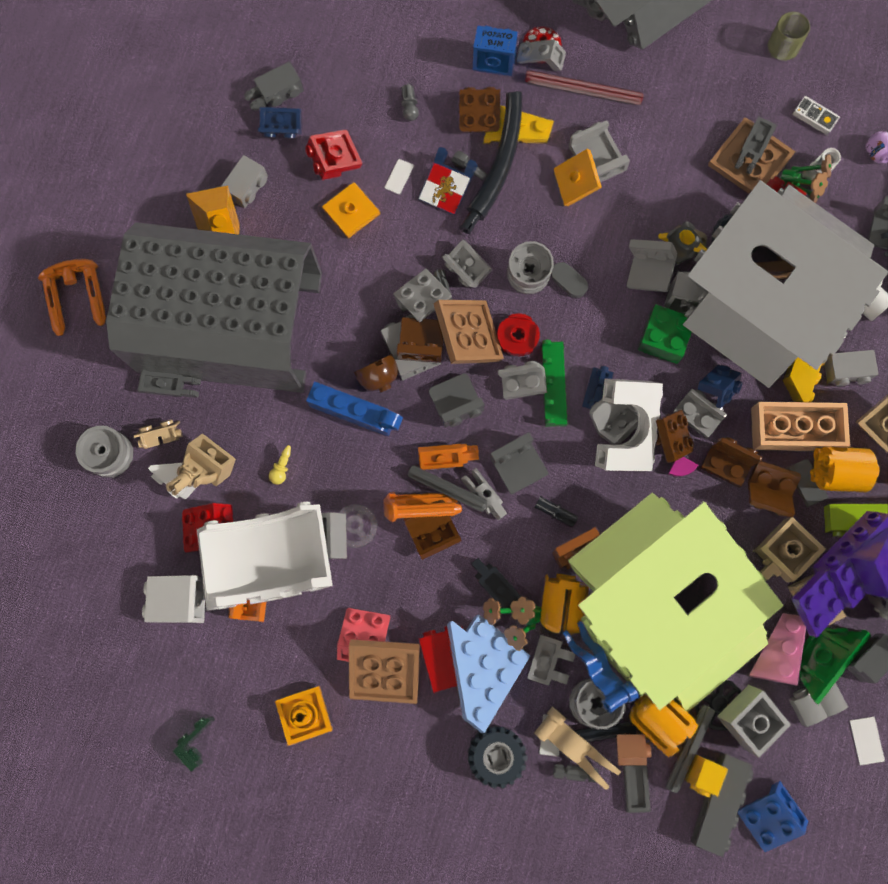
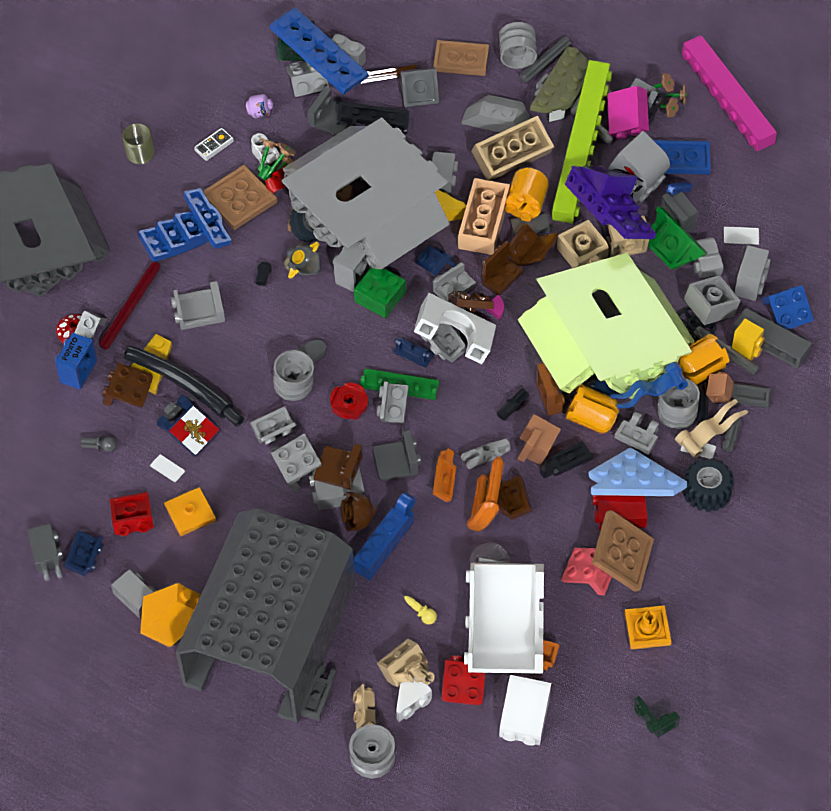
camera: 80 degrees left, 20 degrees down
(67, 270) = (180, 765): orange piece -> none
(447, 488) = (473, 479): dark grey axle -> none
(468, 331) = (339, 432): medium nougat plate -> none
(508, 550) = (539, 439): none -> nougat plate
(518, 464) = (465, 422): dark grey bracket -> none
(523, 610) = (595, 433): medium nougat plant -> none
(577, 177) = (218, 324): light orange plate -> none
(651, 265) = (317, 287): light grey bracket -> none
(653, 208) = (264, 269): none -> black pin
(690, 115) = (186, 230): none -> blue slope
(756, 143) = (231, 188): dark grey hinge -> none
(783, 655) = (667, 272): bright pink wing -> none
(807, 766) = (752, 273): none -> light grey brick

